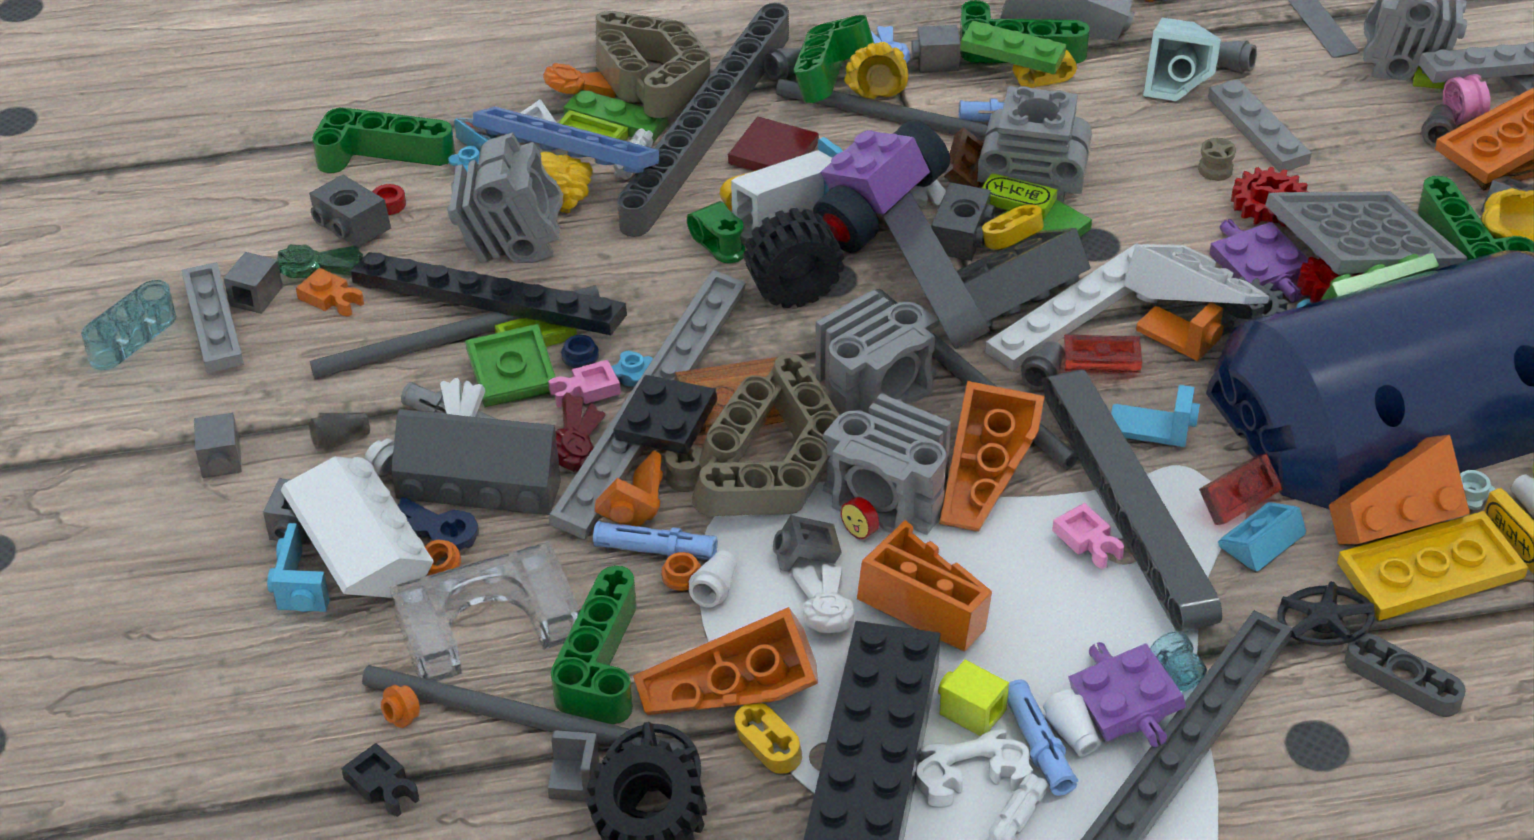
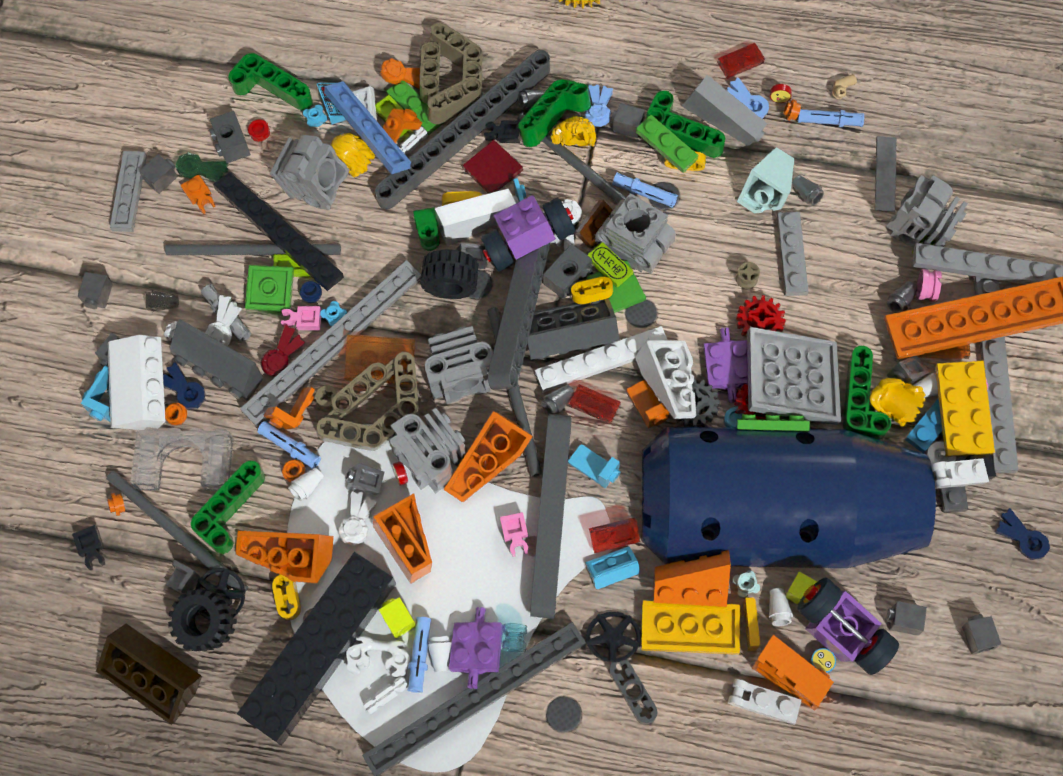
camera: 25 degrees right, 25 degrees up
(128, 324) = (72, 182): clear light blue beam -> none
(609, 122) = (399, 120): none -> orange bracket
(665, 414) = (327, 364): black plate -> none
(770, 103) = (506, 133): none -> black plate

